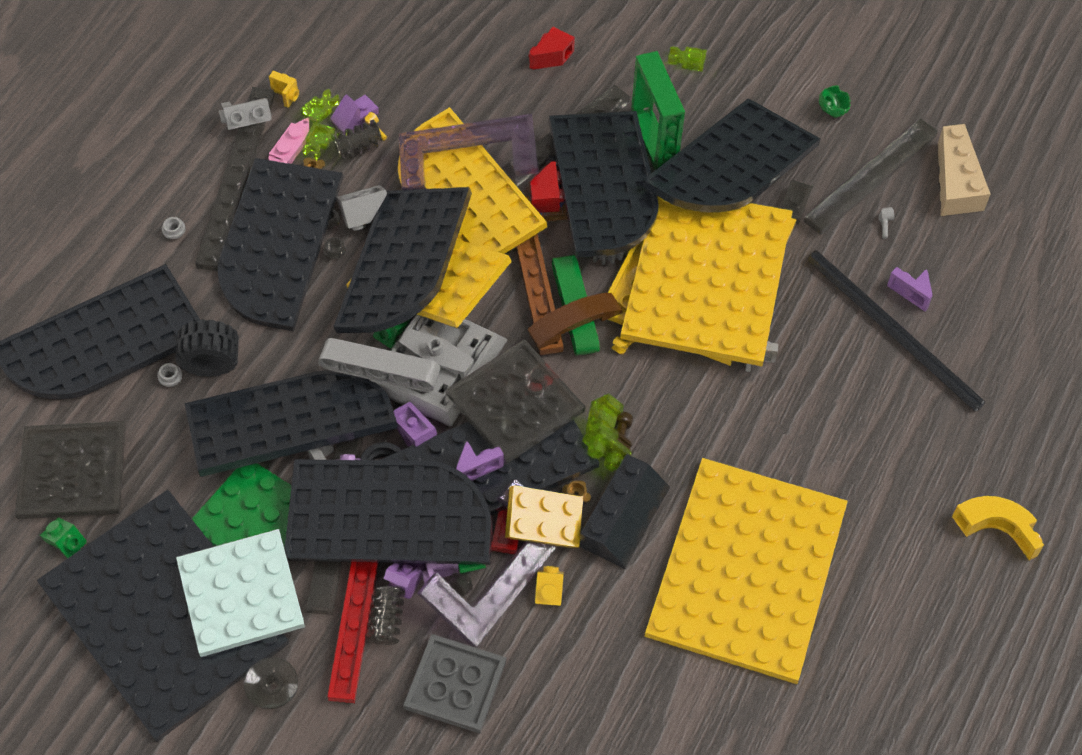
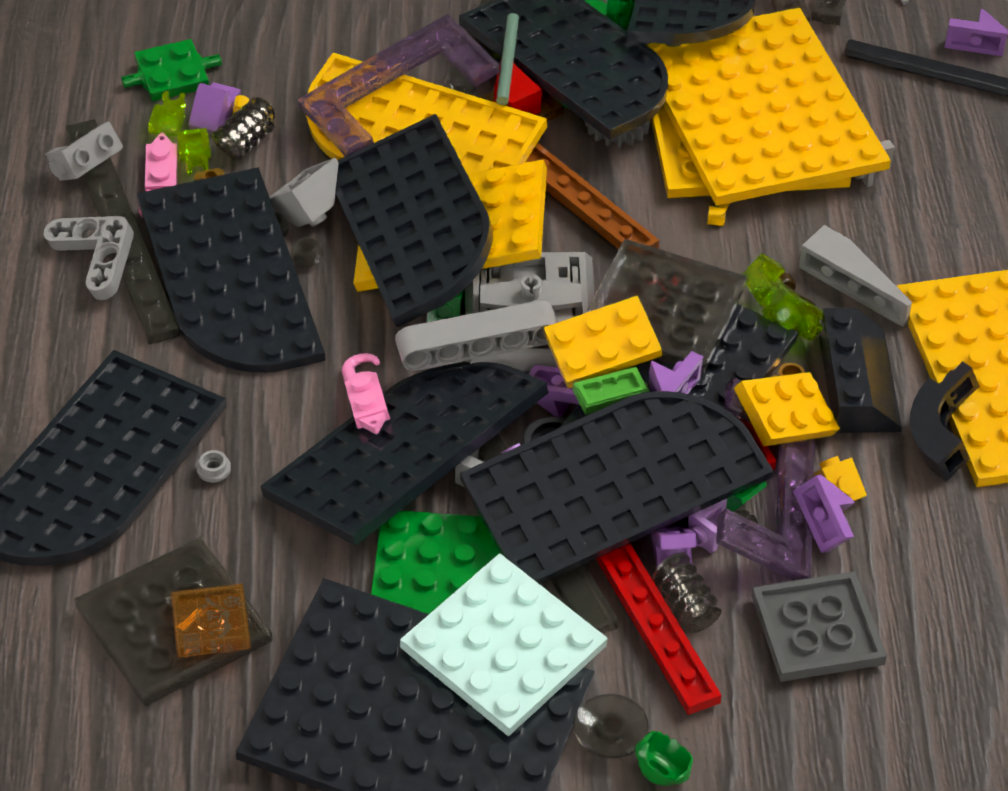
camera: 30 degrees left, 10 degrees down
(64, 537) = (223, 693): green bracket -> none
(86, 482) = (210, 620): none -> clear orange tile
(173, 223) = (87, 311): light grey plate -> none
(207, 348) = (250, 409): black tyre -> none
(219, 179) = (67, 235): none -> light grey beam
(284, 724) = (663, 759): none -> green hair
(285, 86) = (108, 108): yellow bracket -> none
(291, 370) = (365, 393): none -> bright pink plate
(347, 73) = (171, 68): none -> green plate
(432, 447) = (608, 389): none -> bright green plate
(450, 410) = (603, 341): none -> yellow plate
(516, 599) = (823, 510): none -> medium lavender slope
(551, 164) = (507, 59): none -> sand green bar
(571, 288) = (637, 195): green beam -> none
(573, 315) = (649, 203): reddish brown slope -> none
(641, 573) = (929, 418): none -> black arch
(673, 421) = (849, 270): none -> light grey slope

